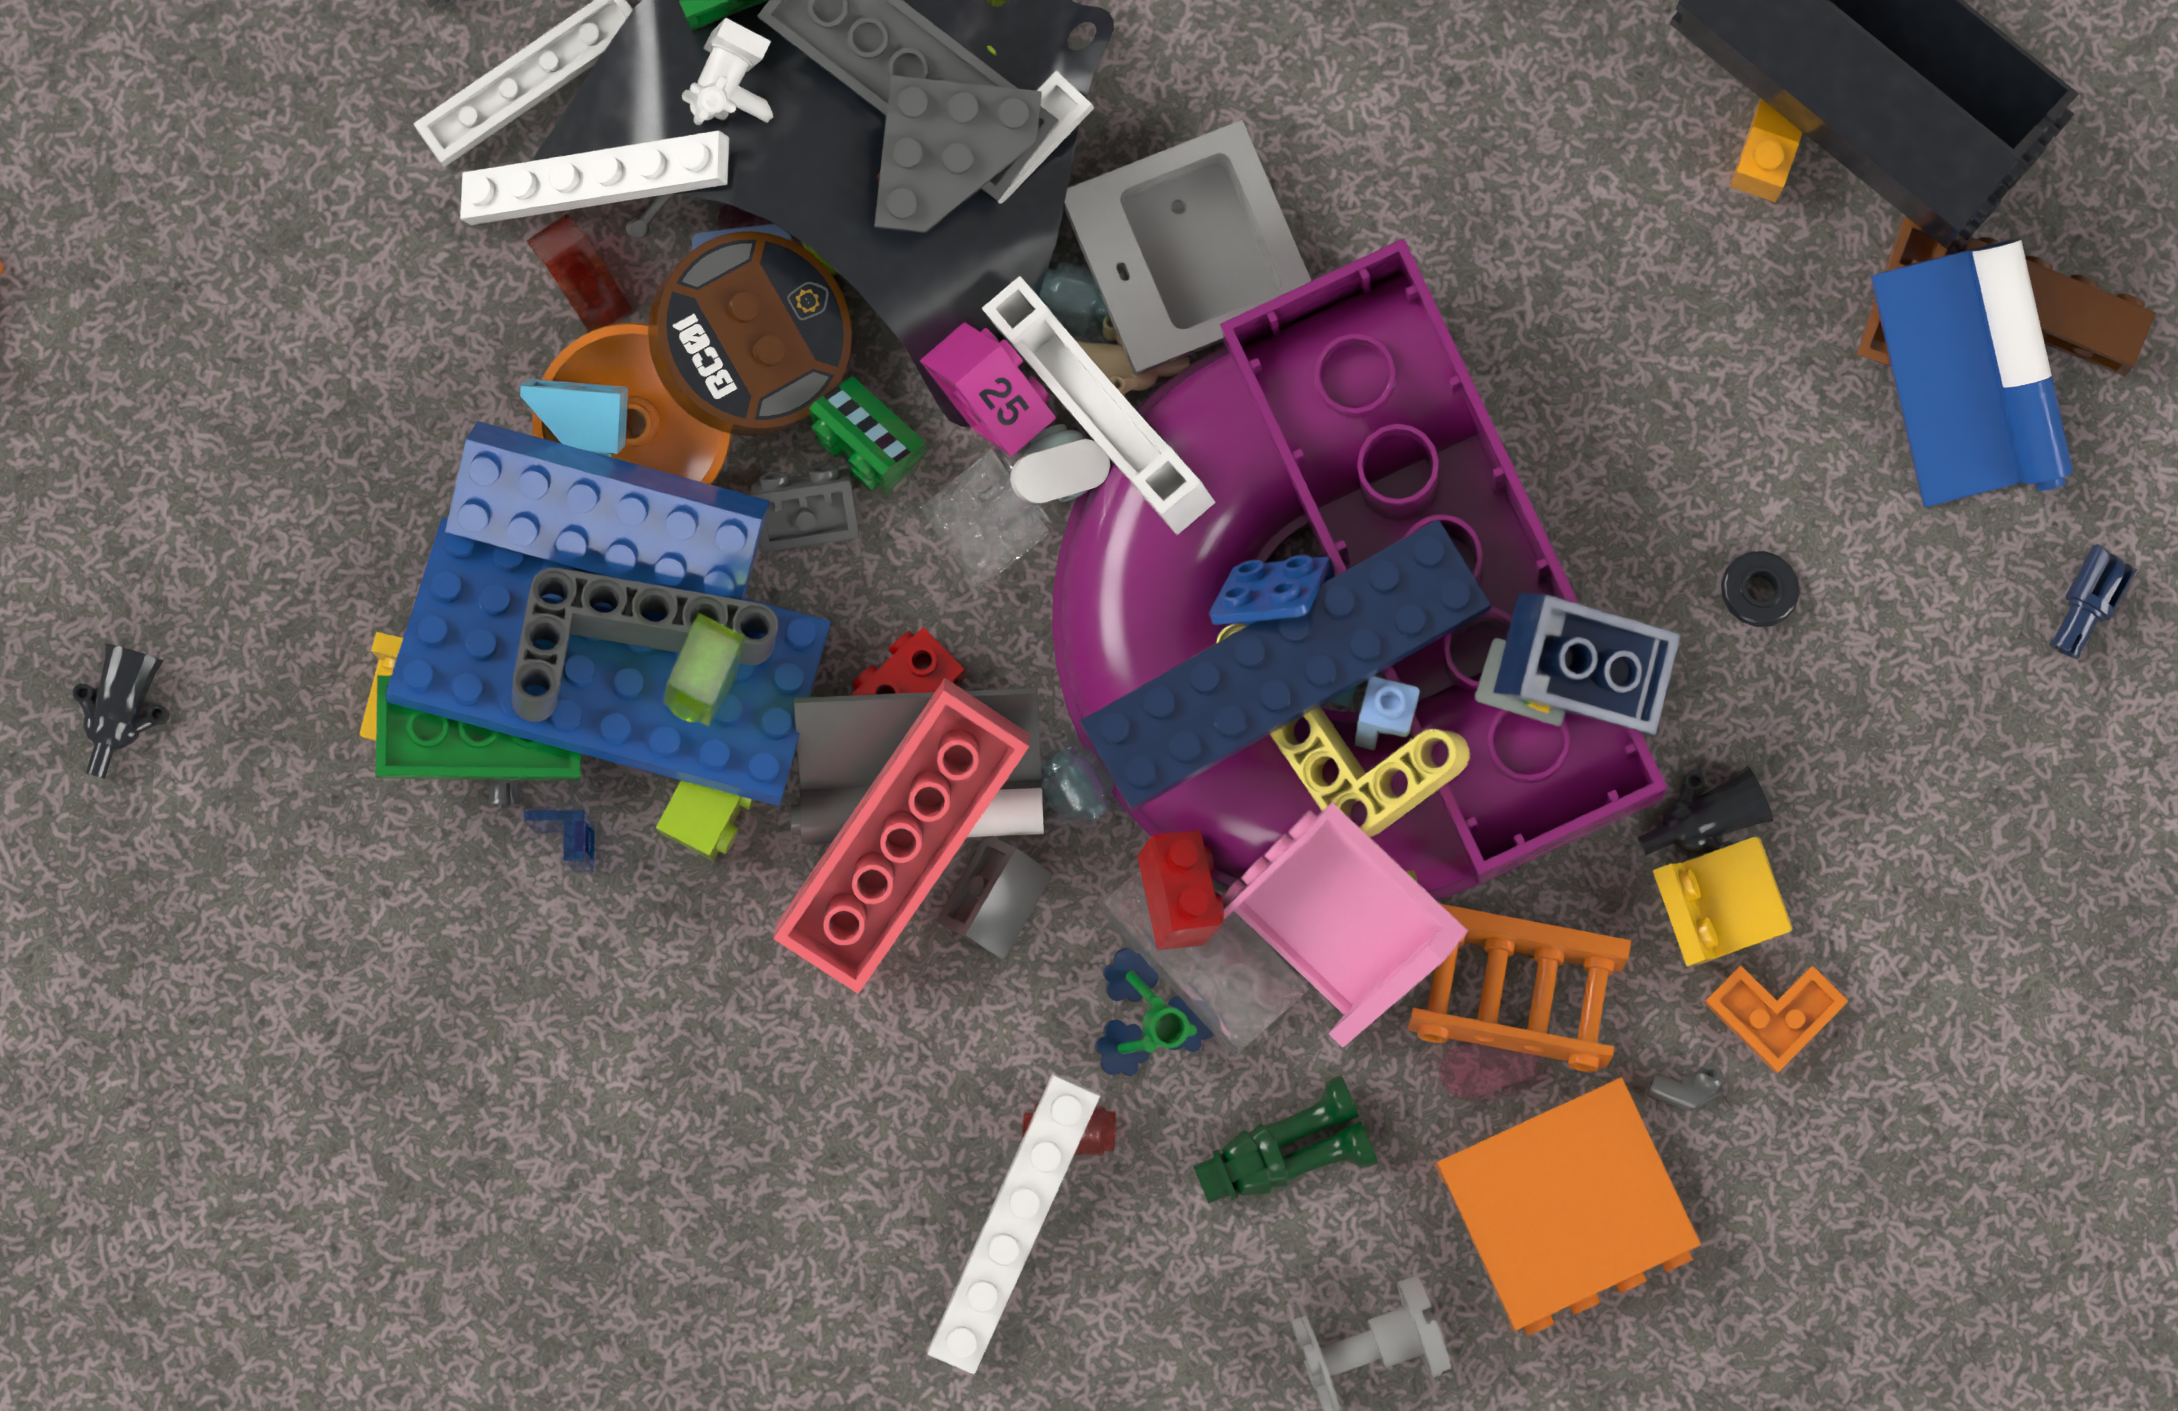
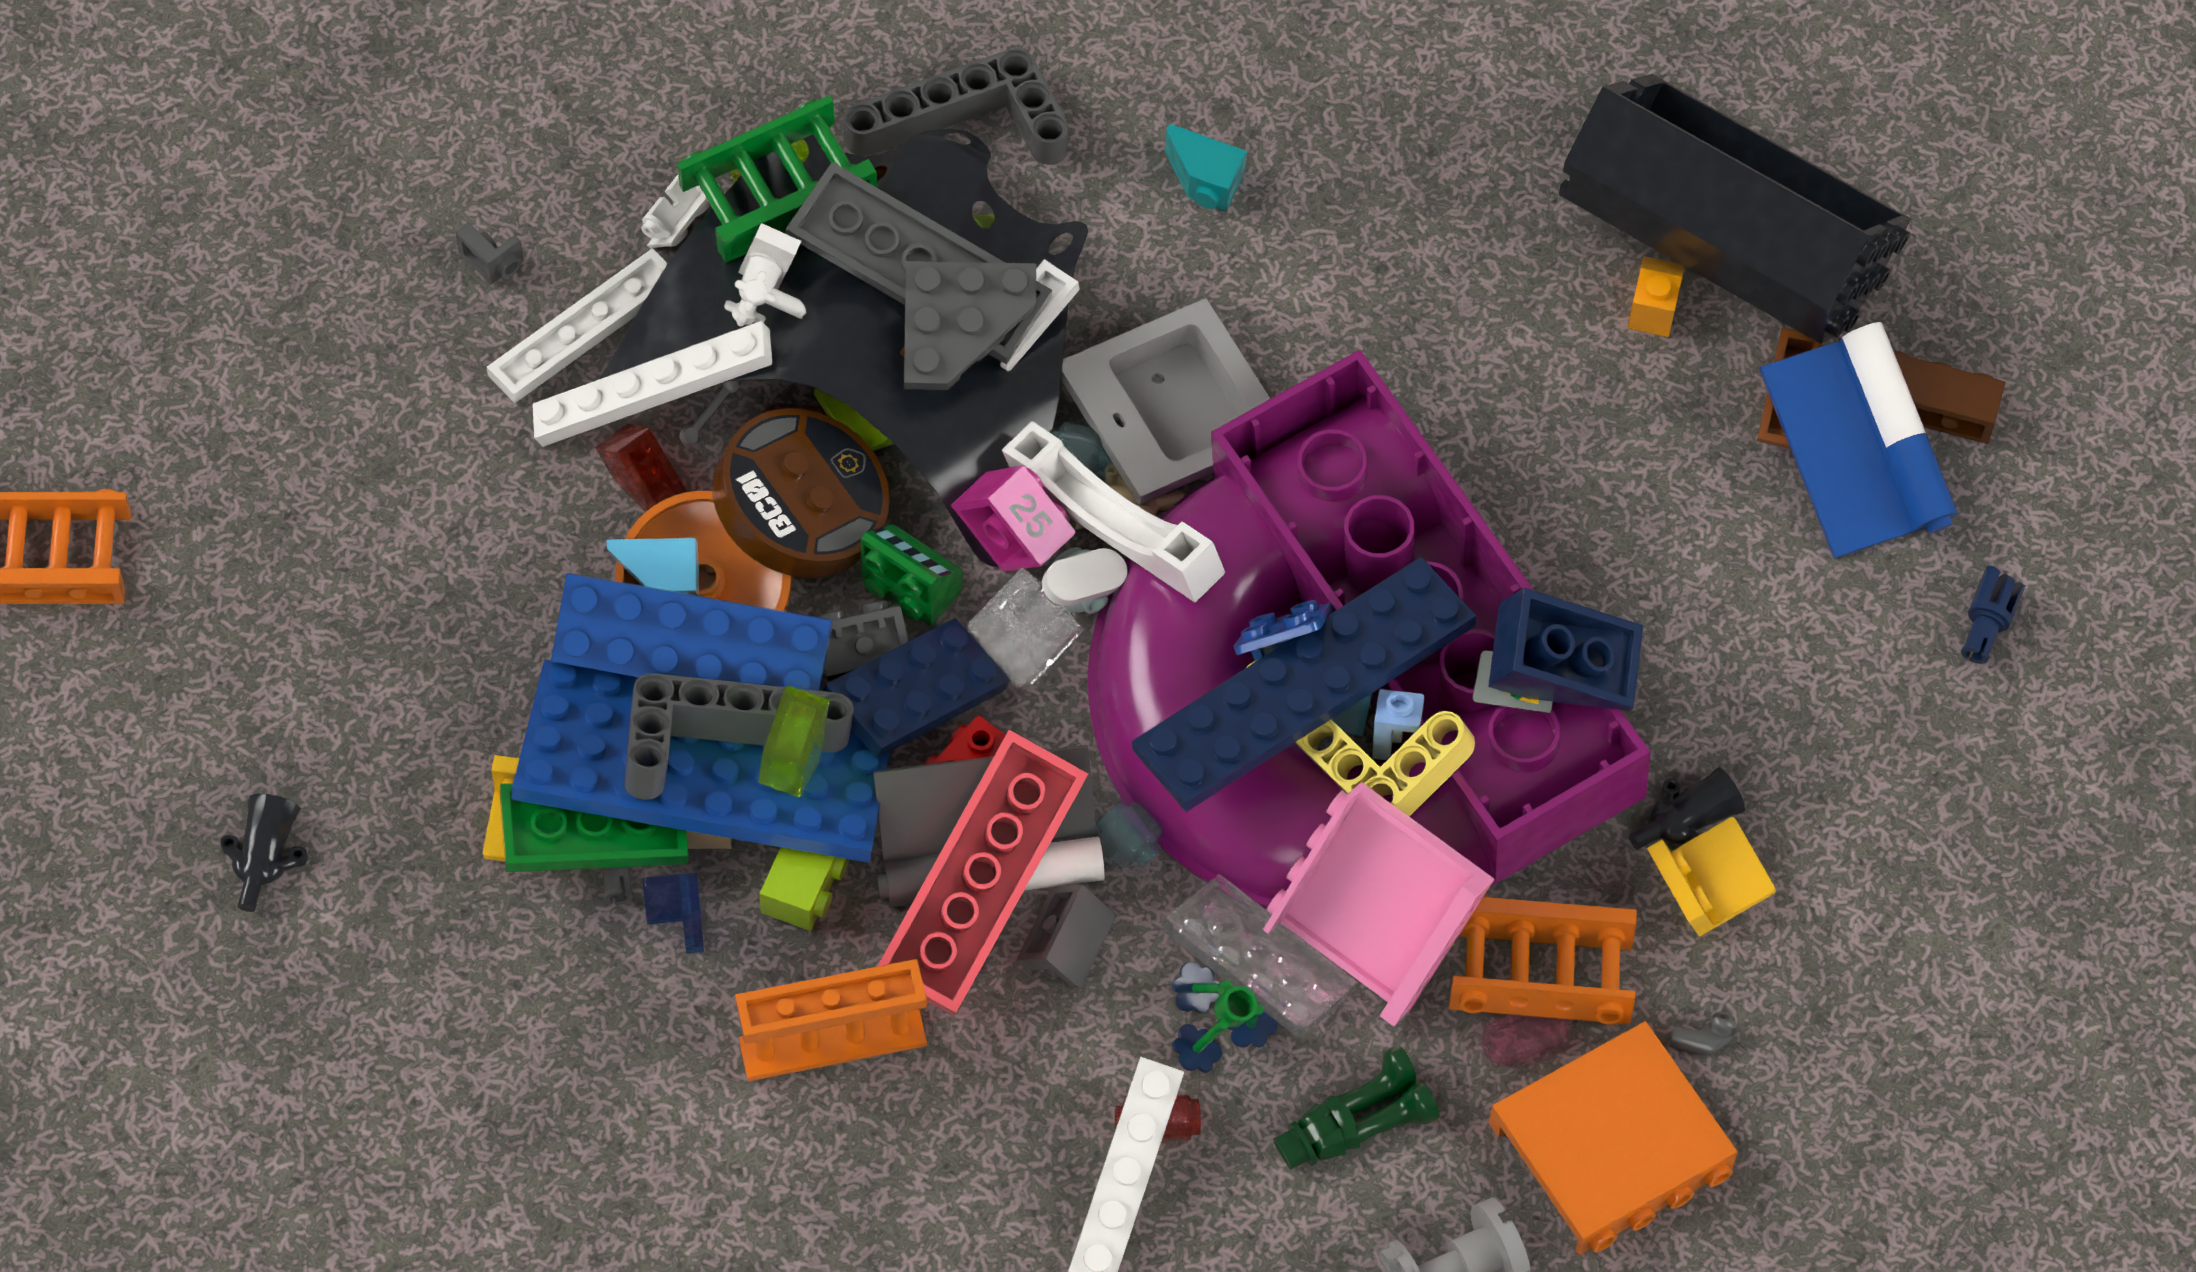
camera: 10 degrees left, 20 degrees down
(717, 993) = (831, 1020): none -> orange fence
(858, 583) = (919, 687): none -> dark blue plate
(1180, 889) = (1232, 899): red brick -> none
(1772, 1026) = (1771, 977): orange plate -> none
(1777, 572) = (1708, 615): black piece -> none

